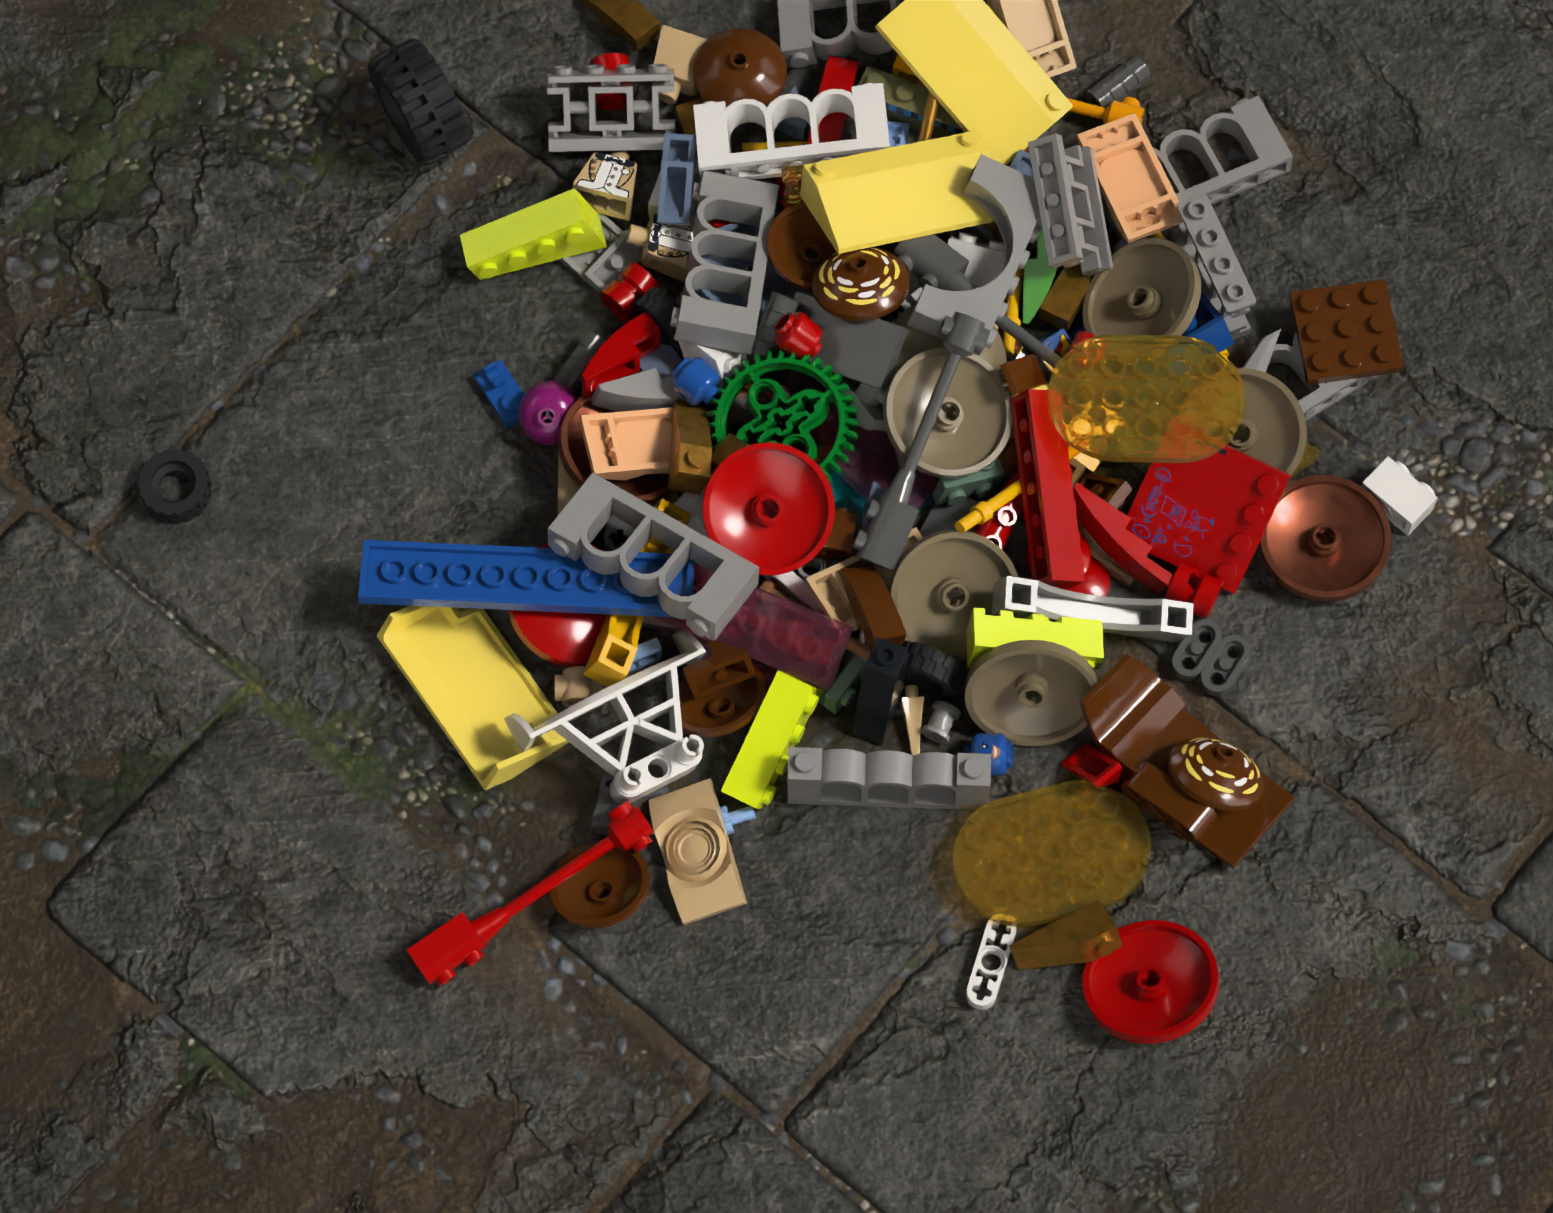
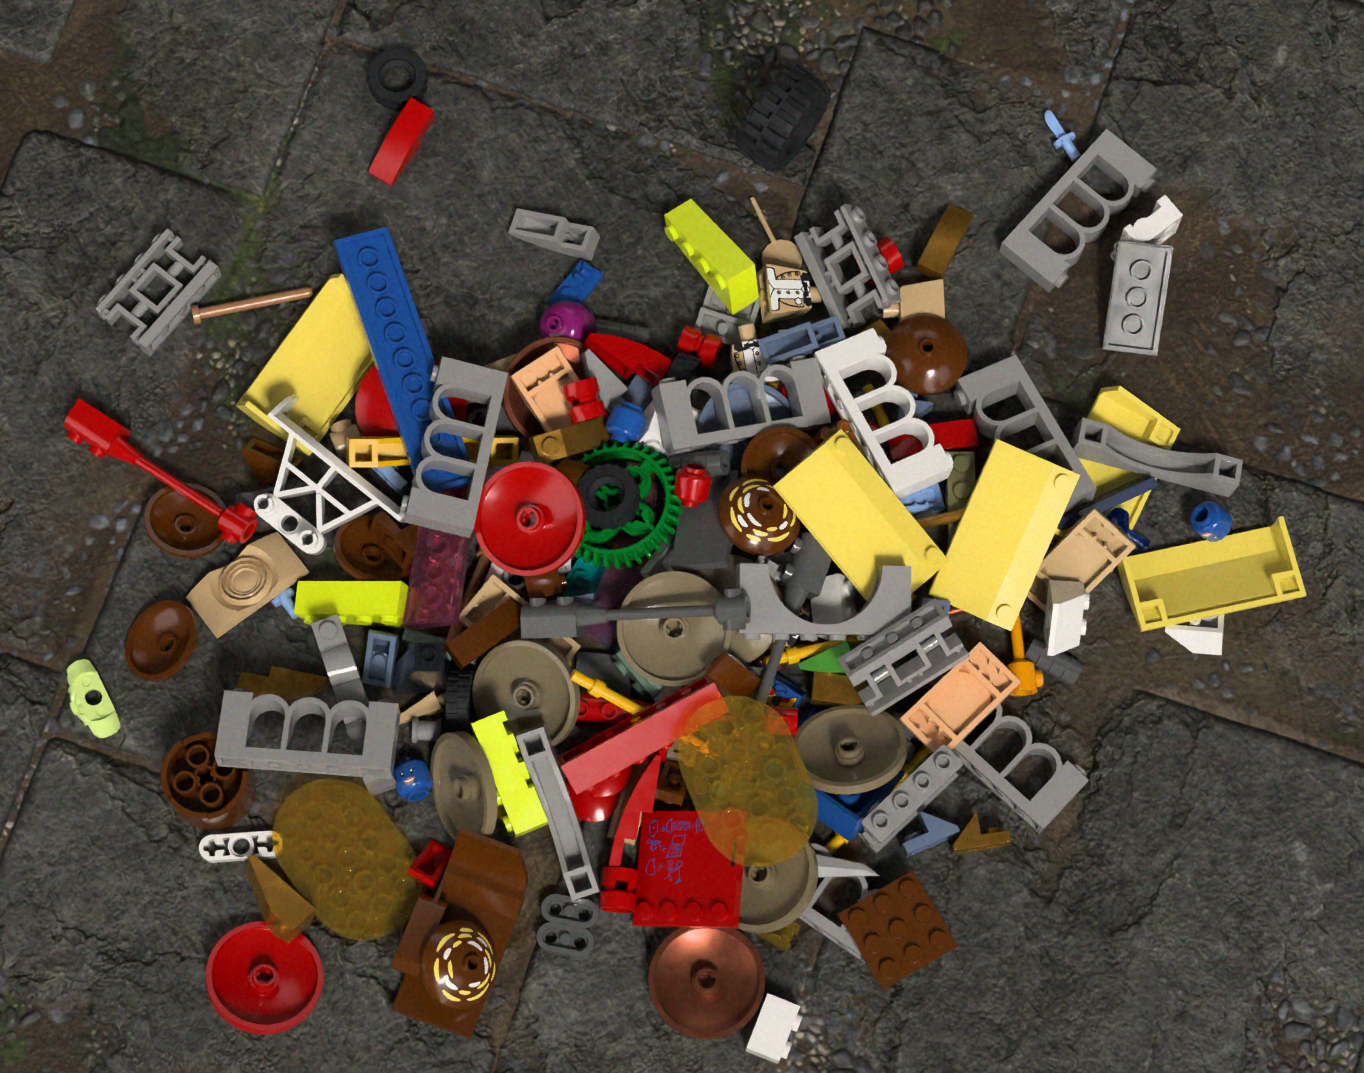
camera: 65 degrees right, 5 degrees up
(252, 507) = (402, 141): none -> red slope
(334, 815) = (174, 305): none -> light grey fence
(356, 794) = (250, 303): none -> medium nougat bar
(431, 391) = (555, 233): none -> light grey slope
(554, 177) = (778, 252): none -> tan piece
(565, 779) = (266, 460): none -> reddish brown slope
(654, 411) = (583, 400): none -> red wheel
(709, 963) = (161, 641): none -> reddish brown dish
(734, 1065) = (101, 717): none -> yellowish green piece
(772, 397) = (624, 510): none -> black tyre
(827, 857) = (284, 683): none -> pearl gold slope
(838, 732) = (380, 658): none -> sand blue slope
(912, 986) = (211, 804): none -> reddish brown brick
(936, 741) = (242, 708): none -> light grey fence
(1077, 51) = (1064, 615): none -> white slope
(1254, 267) = (935, 832): none -> sand blue slope
(1271, 229) = (972, 839): none -> pearl gold slope

